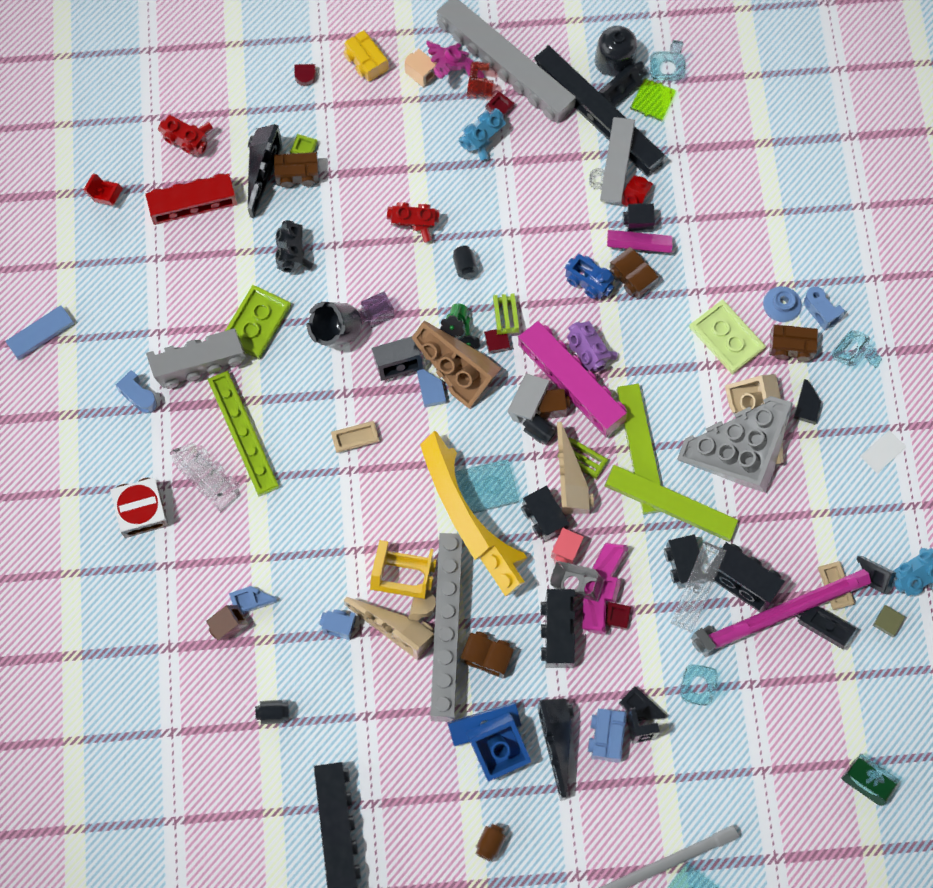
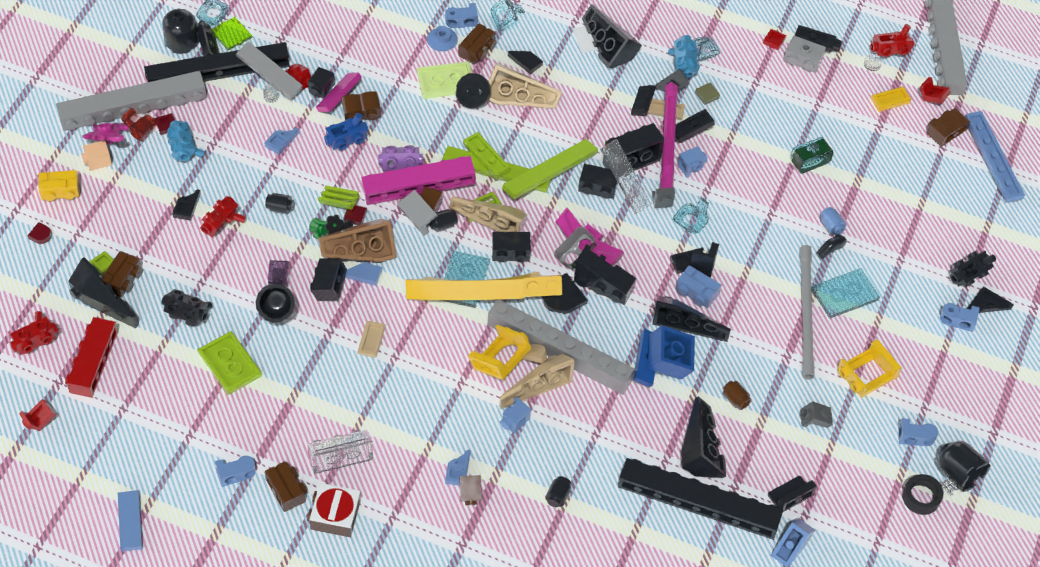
camera: 65 degrees left, 15 degrees down
(143, 448) = (285, 486): none -> reddish brown brick
(196, 358) = (237, 408): light grey wedge -> none
(243, 433) = (317, 413): lime tile -> none
(404, 834) = (701, 445): none -> black wedge
(414, 180) = (186, 206): none -> black tile
(487, 654) = (597, 330): reddish brown brick -> none
(521, 603) = (570, 300): none -> black tile
(547, 220) = (280, 140): none -> medium blue tile
(566, 546) = (544, 245): coral brick -> none
(617, 616) = (614, 240): dark red tile -> none
(647, 429) = (486, 155): none -> lime tile
(724, 371) = (473, 91): none -> black tile
(743, 447) = (536, 106): light grey slope -> none
(755, 860) = (831, 245): none -> black arm
(777, 649) = (691, 161): none -> medium blue brick
(790, 846) = (833, 221): none -> medium blue brick
(831, 554) = (643, 100): none -> black tile
(894, 483) = (611, 40): none -> black wedge

